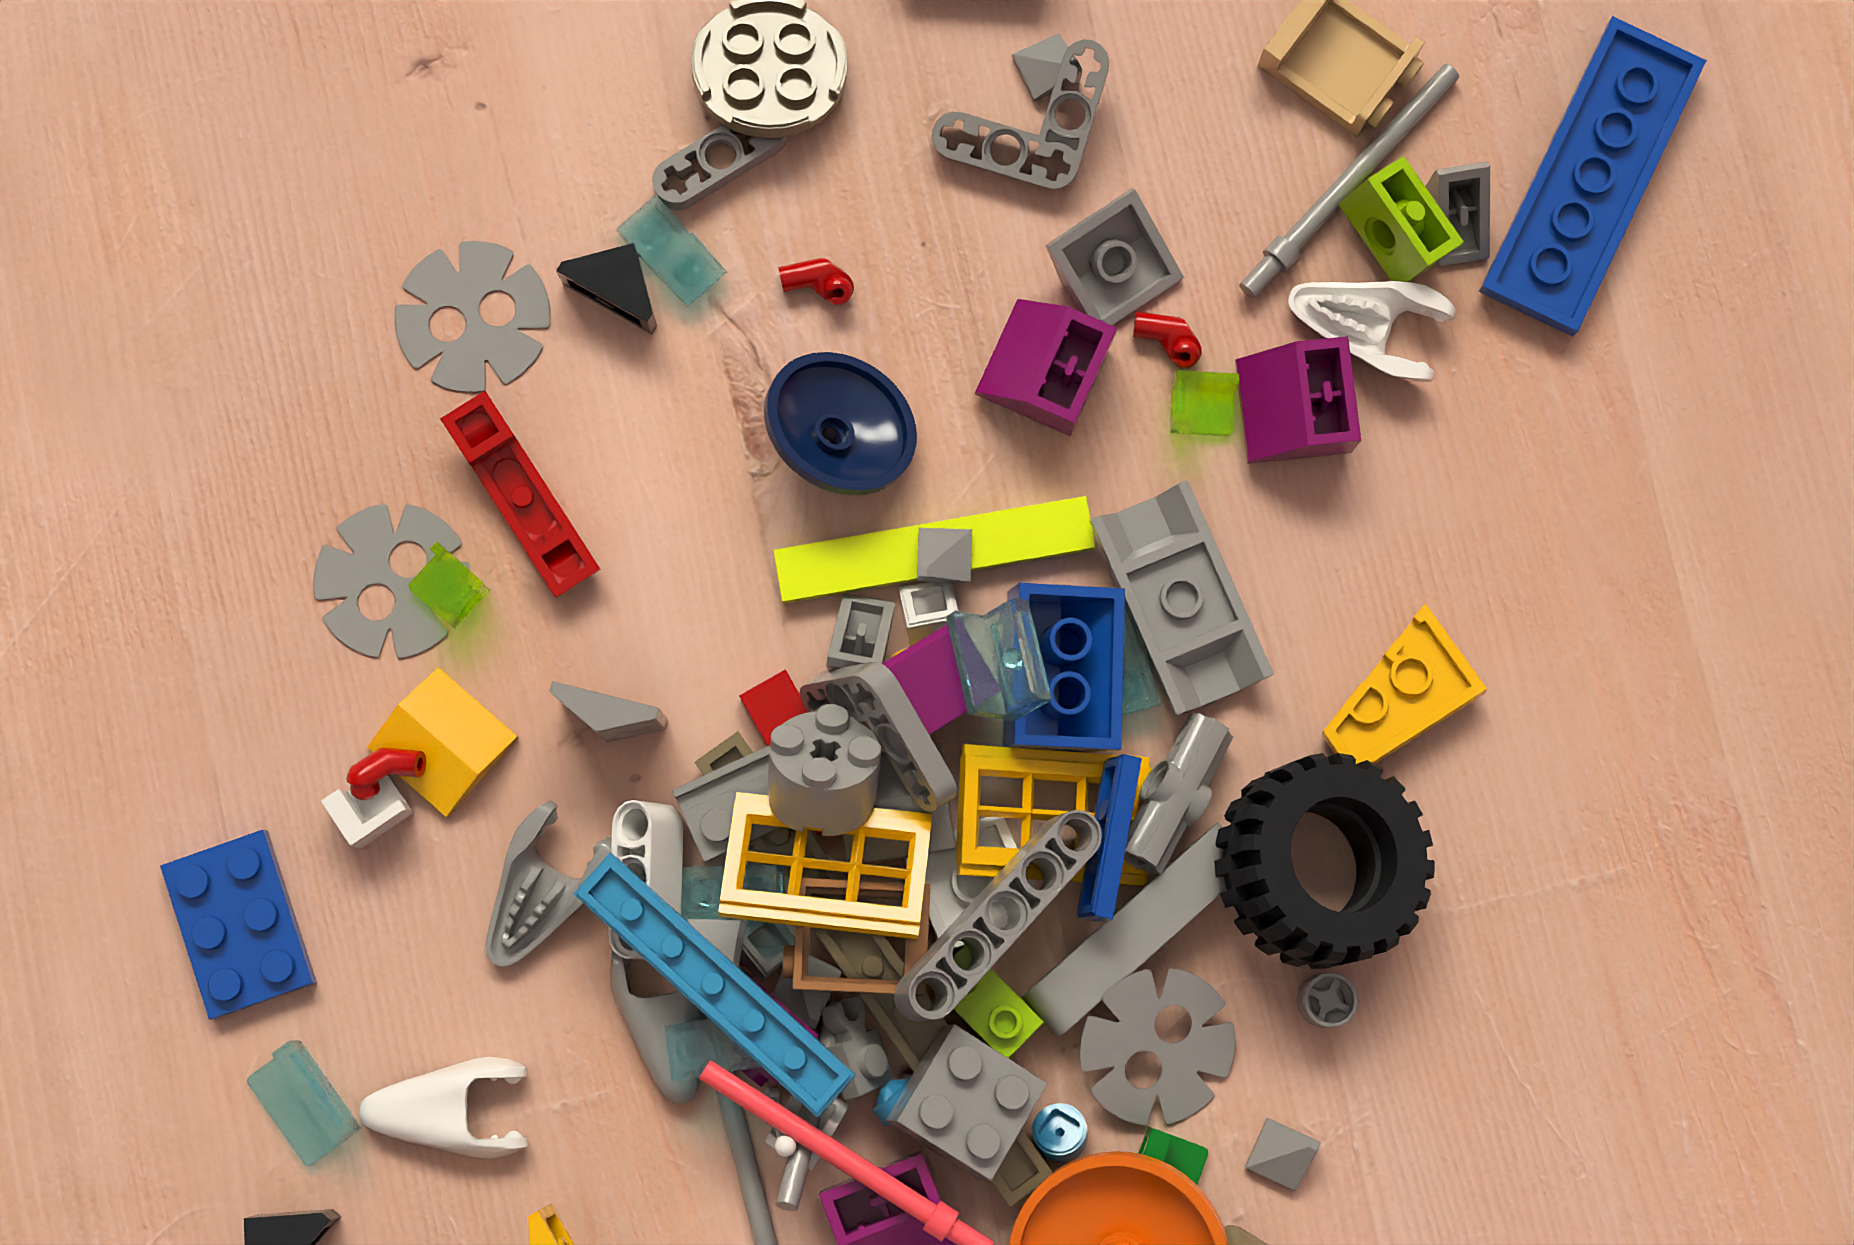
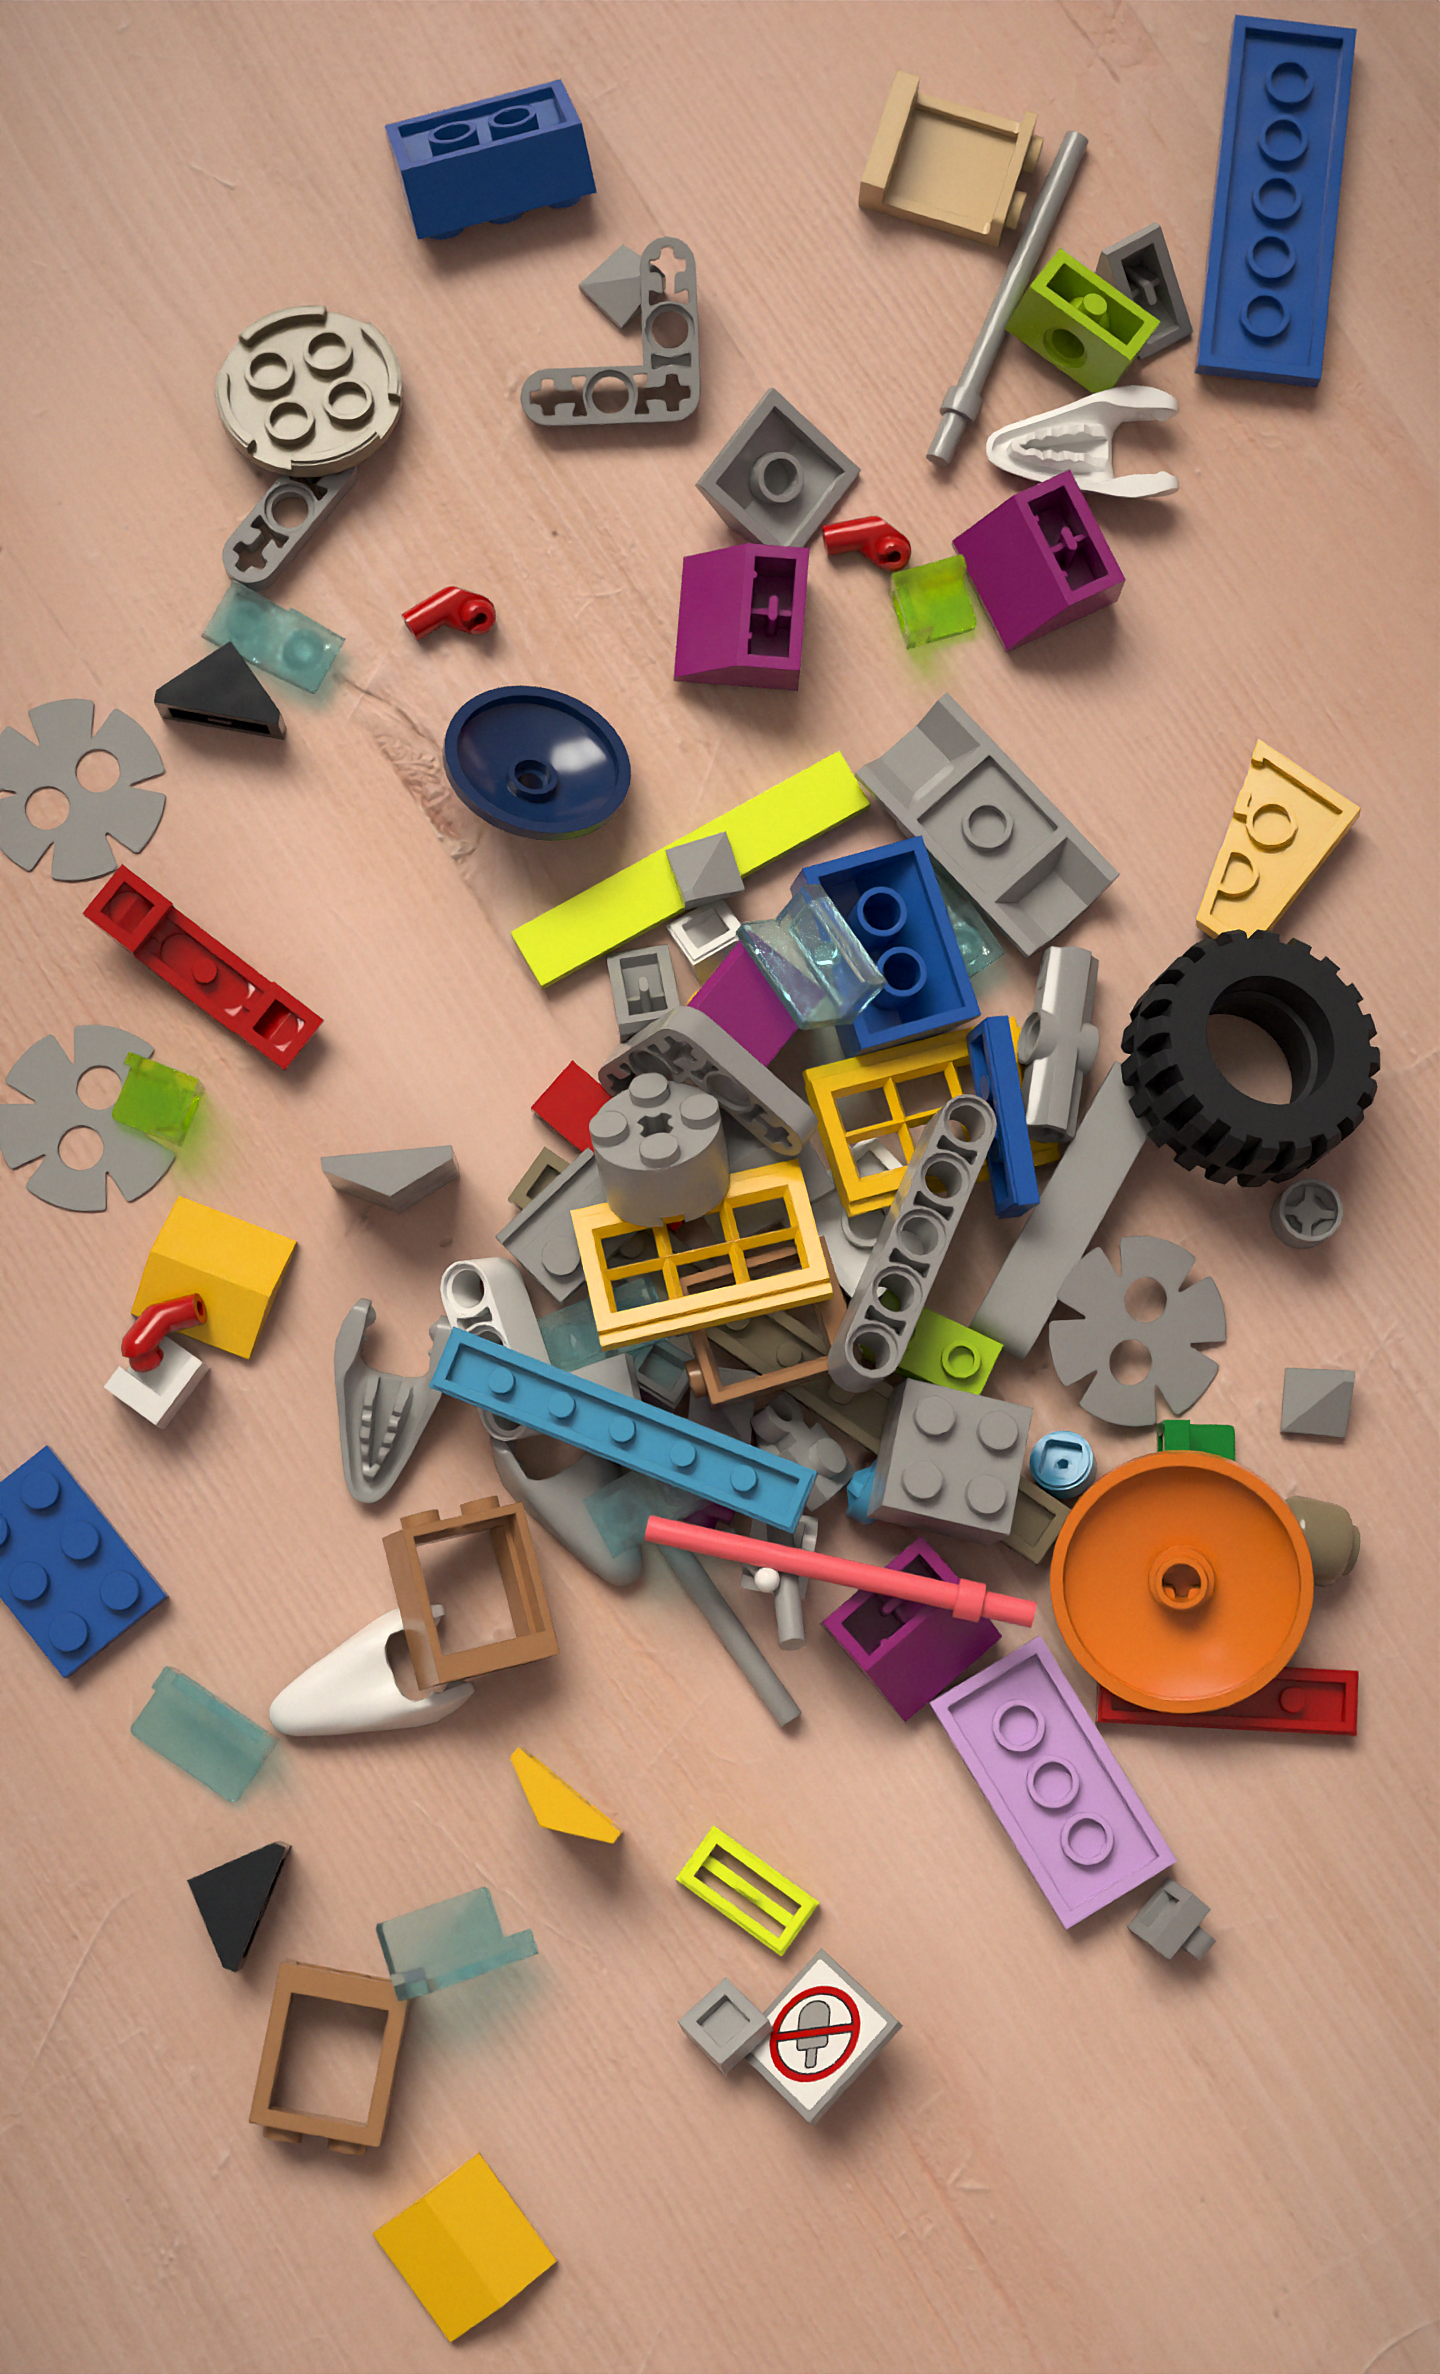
camera: 20 degrees left, 0 degrees up
(595, 1073) = (520, 1578): none -> medium nougat window

